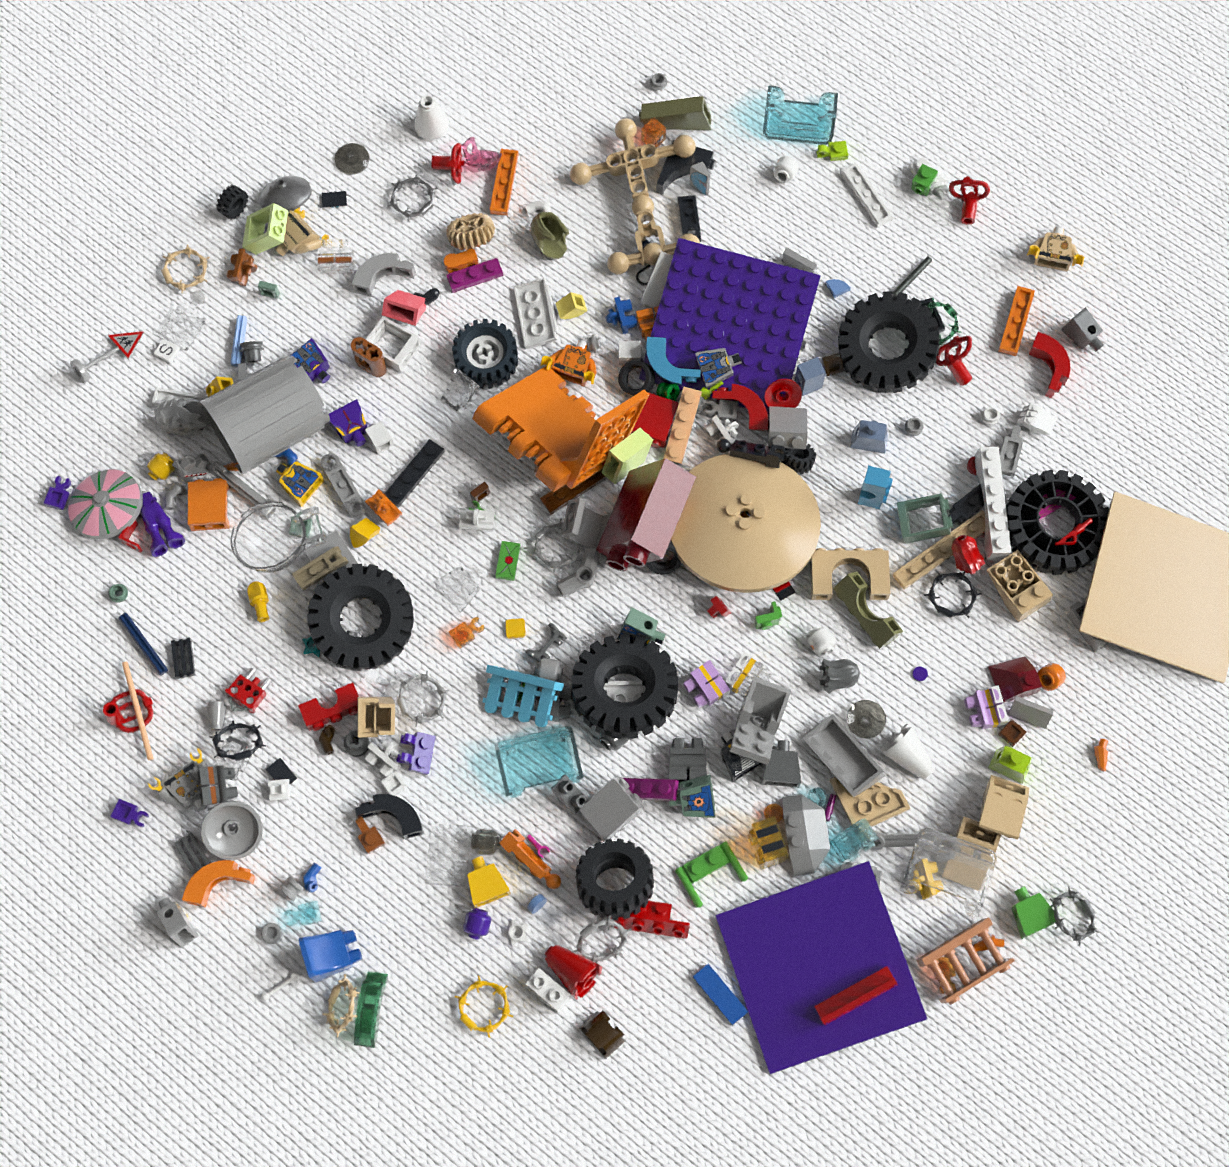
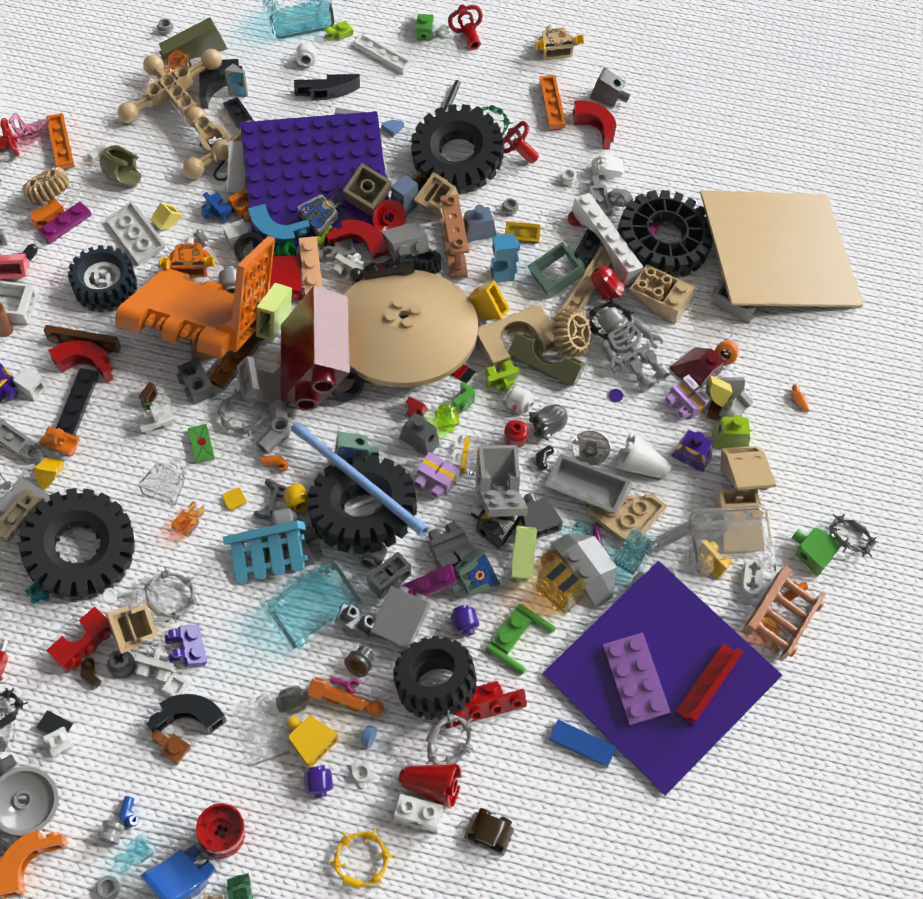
camera: 30 degrees left, 10 degrees down
(371, 920) = (220, 817): none -> red wheel
(432, 422) = (81, 352): none -> red arch
(448, 414) = (62, 335): none -> reddish brown plate
(460, 391) = (92, 315): clear cylinder -> none
(531, 496) = (197, 380): none -> dark grey brick
(558, 832) = (359, 661): none -> dark grey piece
(568, 607) = (277, 461): none -> orange arm
(569, 652) = (296, 497): none -> yellow head
(603, 401) = (227, 278): none -> light grey head
(619, 764) = (391, 572): none -> dark grey brick
(655, 729) = (412, 522): none -> light blue piece
(667, 836) = (464, 620): none -> dark purple head
(709, 637) = (420, 434): none -> dark grey torso
(744, 631) = (447, 417): none -> clear neon green head
(748, 798) = (523, 553): none -> yellowish green window
(772, 359) = (366, 189): none -> dark tan brick
(794, 960) = (636, 679): none -> medium lavender plate
(796, 219) = (332, 87): none -> black slope
(798, 680) = (516, 433): none -> red head
(815, 707) = (541, 457): none -> black arm
(824, 609) = (503, 379): none -> lime hips
(837, 441) = (454, 236): none -> nougat fence
(838, 527) = (489, 302): none -> yellow torso
(842, 389) = (430, 194): none -> tan plate
(901, 592) = (571, 332): none -> tan gear
(912, 460) = (523, 230): none -> yellow plate
(951, 597) = (613, 324): none -> light grey piece
(952, 911) = (748, 577): none -> white beam
(964, 765) = (694, 450): none -> dark purple torso
(1020, 715) = (719, 390): none -> light yellow brick
(1029, 737) = (736, 404): none -> light grey leg
(1030, 462) = (620, 197): none -> light grey beam
(1073, 534) = (686, 233): red hand -> none

